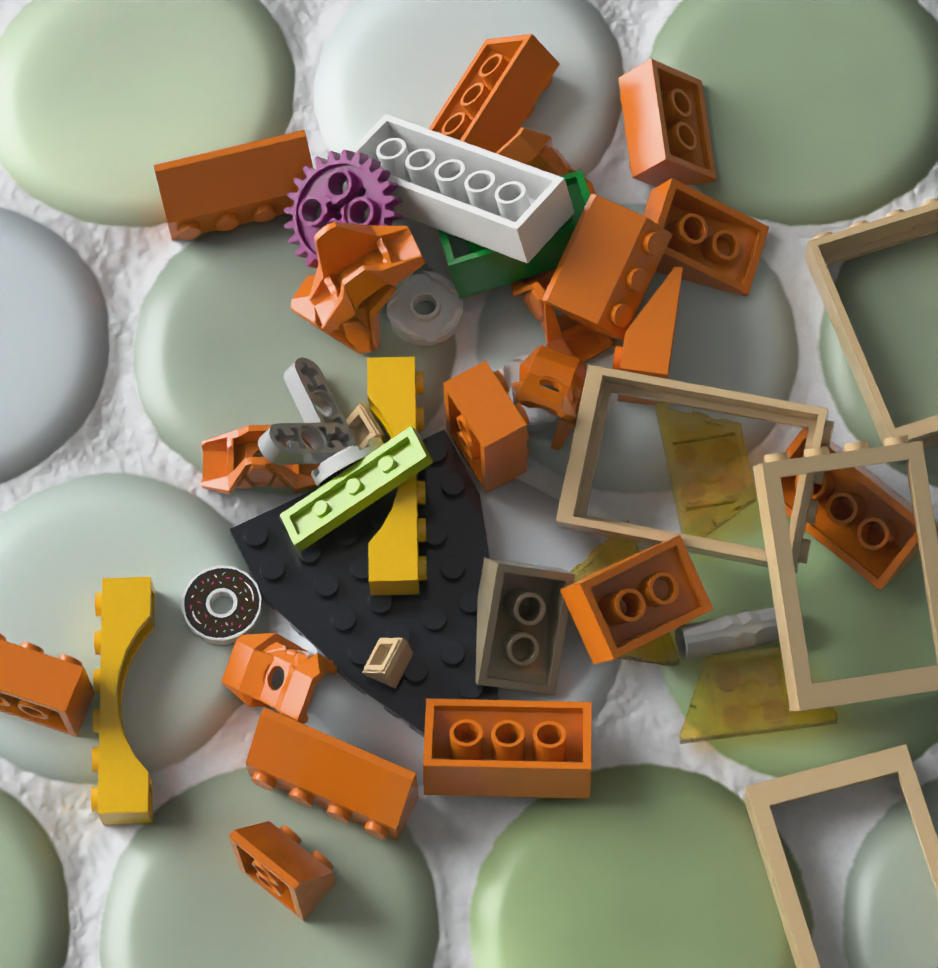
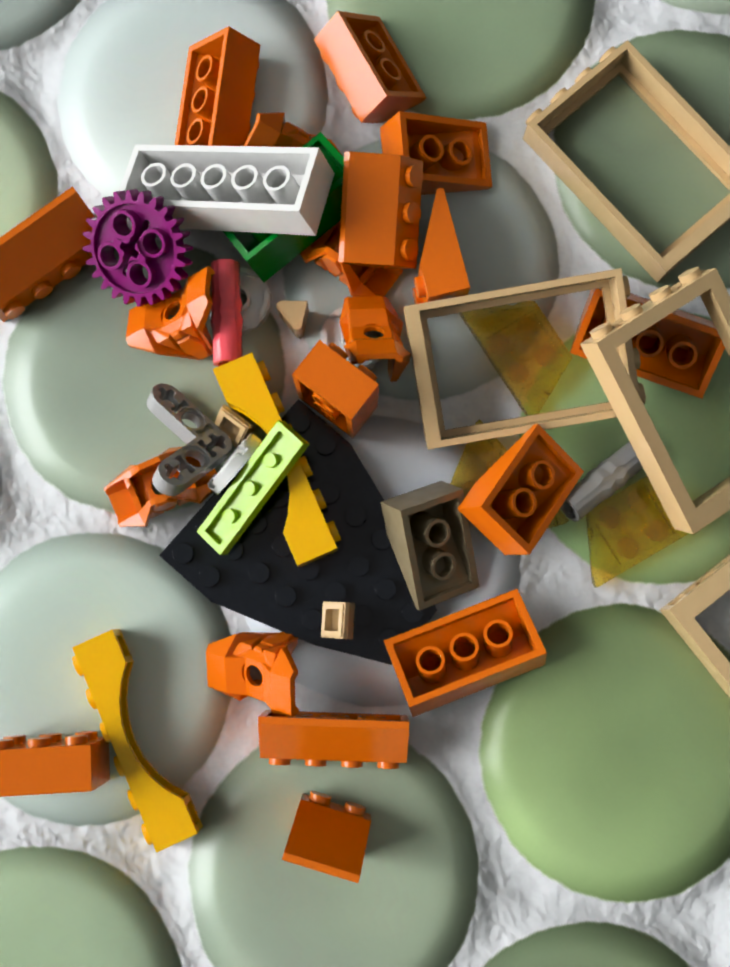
camera: 25 degrees left, 15 degrees up
(217, 583) = (159, 621): tile -> none
(356, 264) = (156, 282): orange piece -> none
(407, 311) = (226, 311): none -> coral axle
(478, 342) = (294, 315): none -> tan slope

